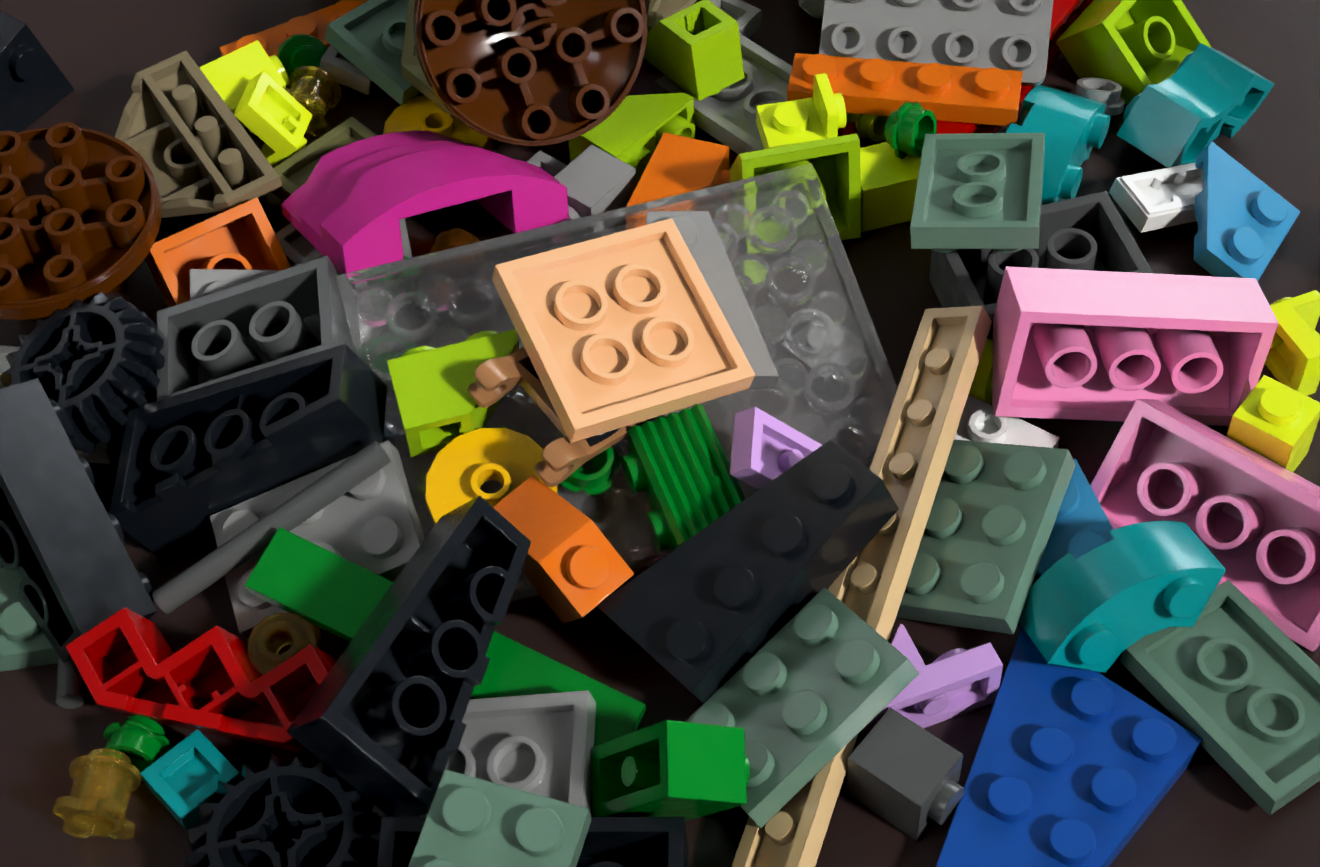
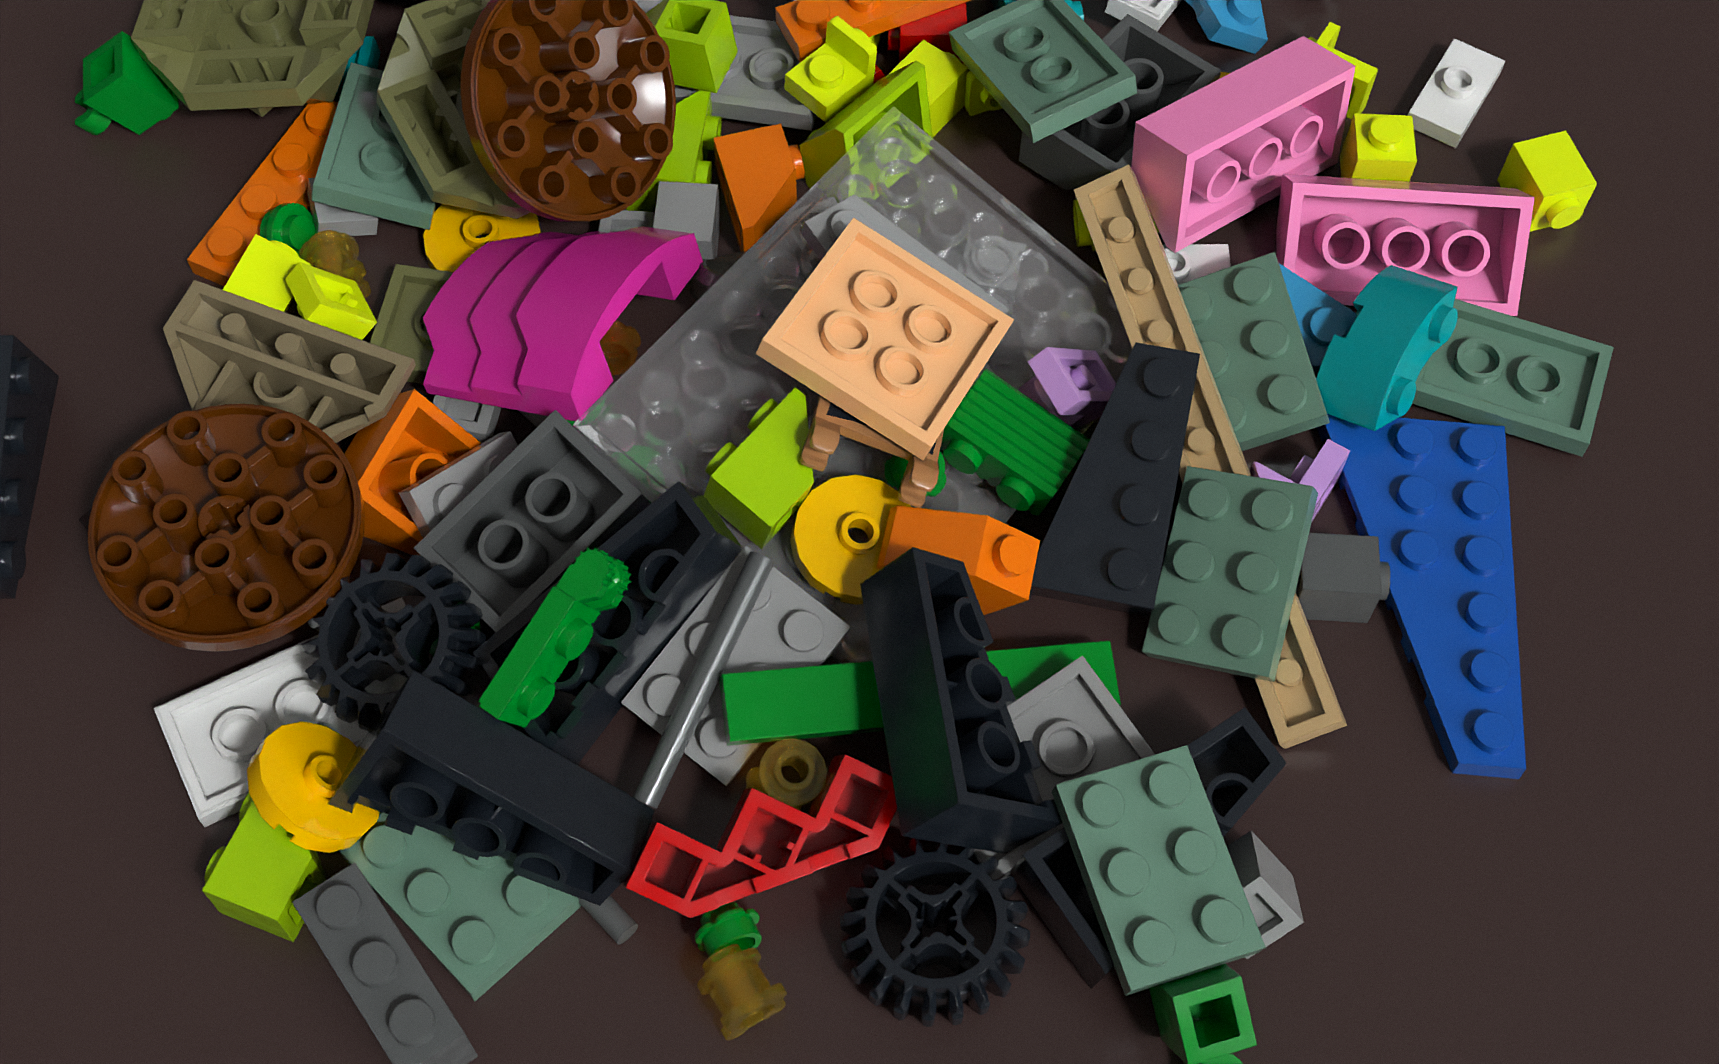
camera: 40 degrees left, 10 degrees up
(167, 418) = (555, 637): none -> green hinge
(189, 777) = (802, 928): teal plate -> none
(670, 771) = (1199, 683): green brick -> none
(907, 129) = (931, 34): green plate -> none

